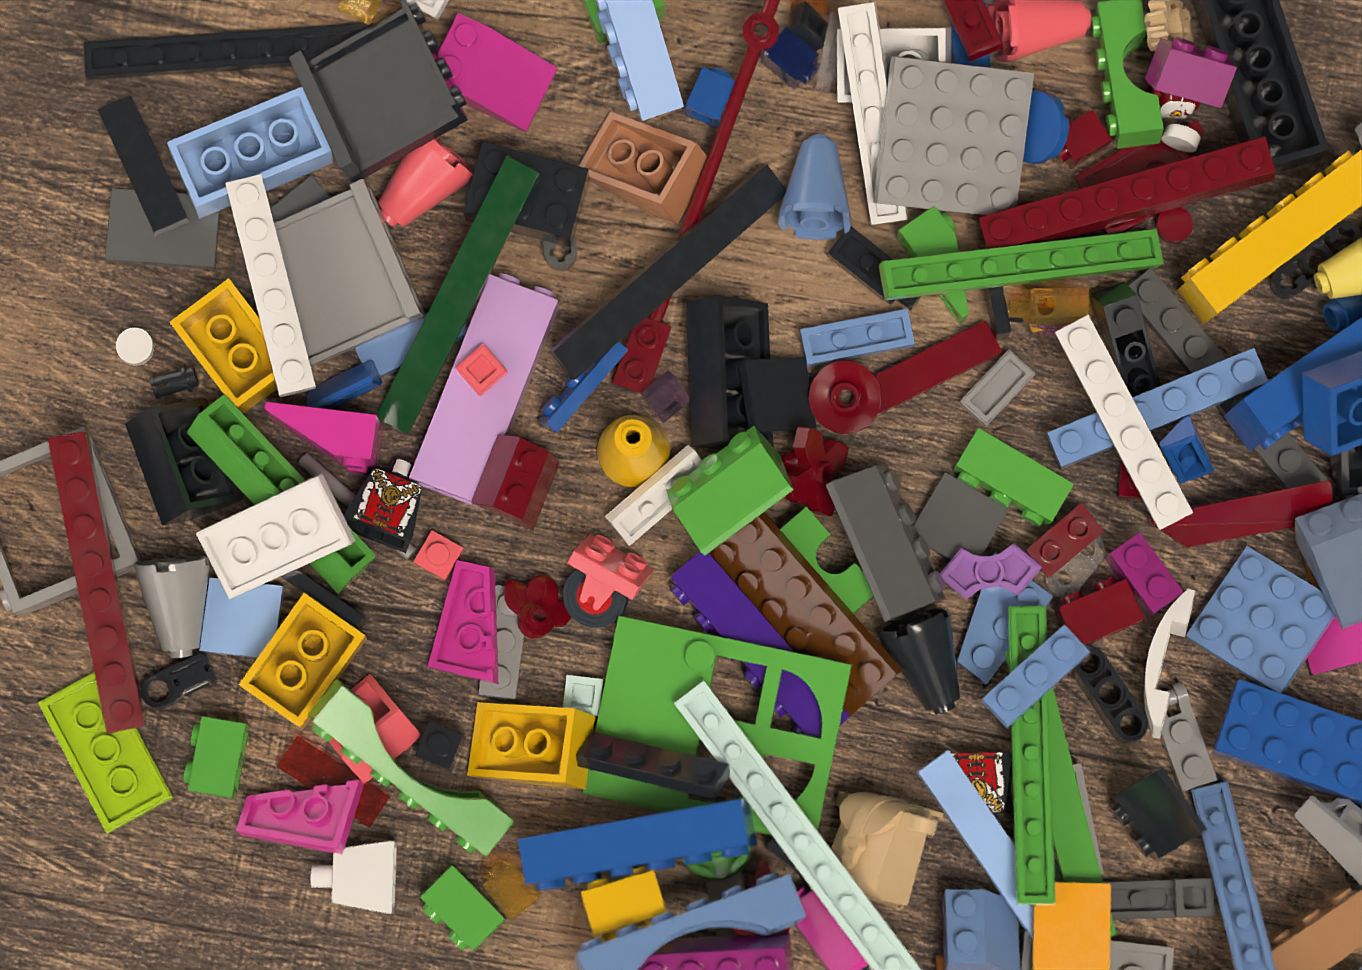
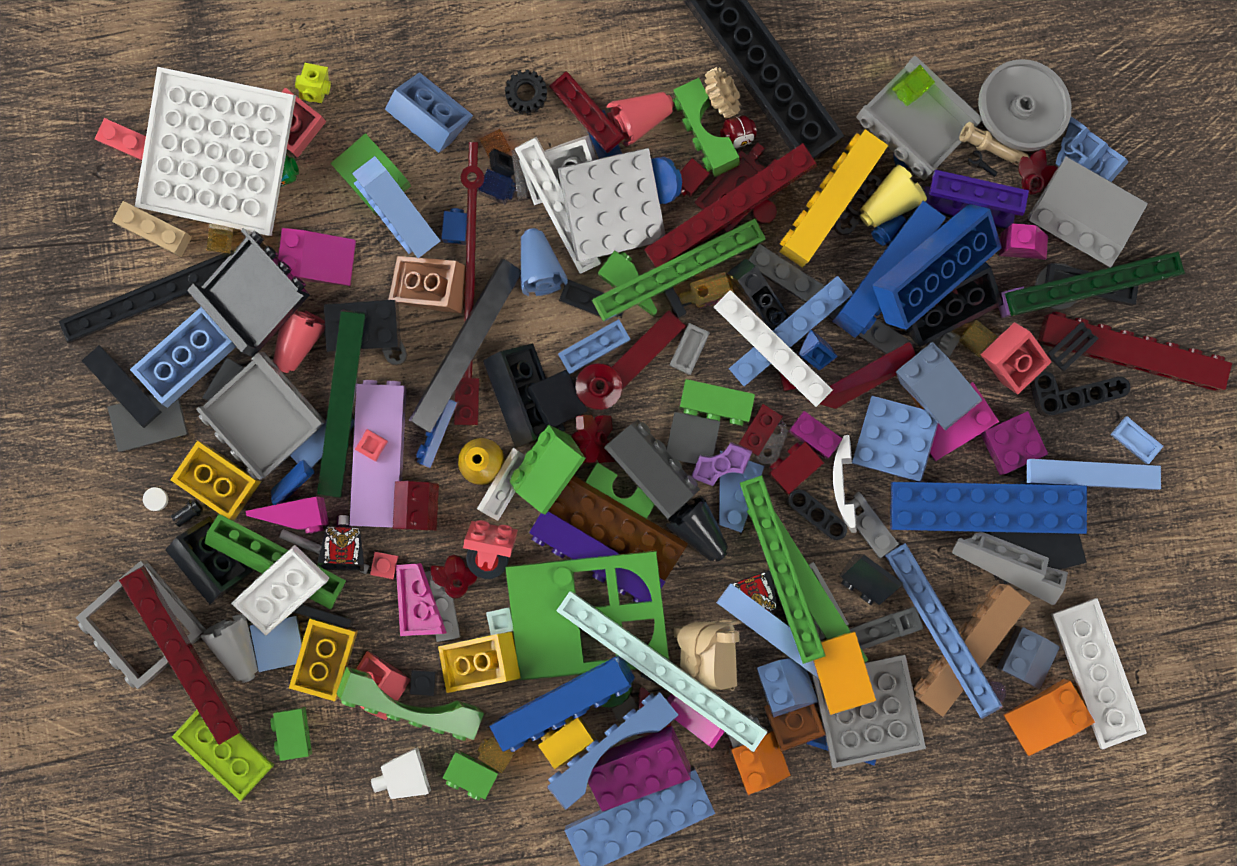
camera: 15 degrees left, 5 degrees up
(181, 679) = (254, 692): black piece -> none
(270, 285) = (224, 437): white plate -> none
(304, 818) = (356, 753): dark pink wing -> none
(315, 768) = (366, 724): clear red tile -> none
(653, 765) = (556, 652): black plate -> none
(665, 396) = (489, 422): plate -> none
(1035, 676) = (769, 521): medium blue plate -> none
(1181, 137) = (751, 158): white tile -> none
(1191, 72) = (744, 116): magenta brick -> none

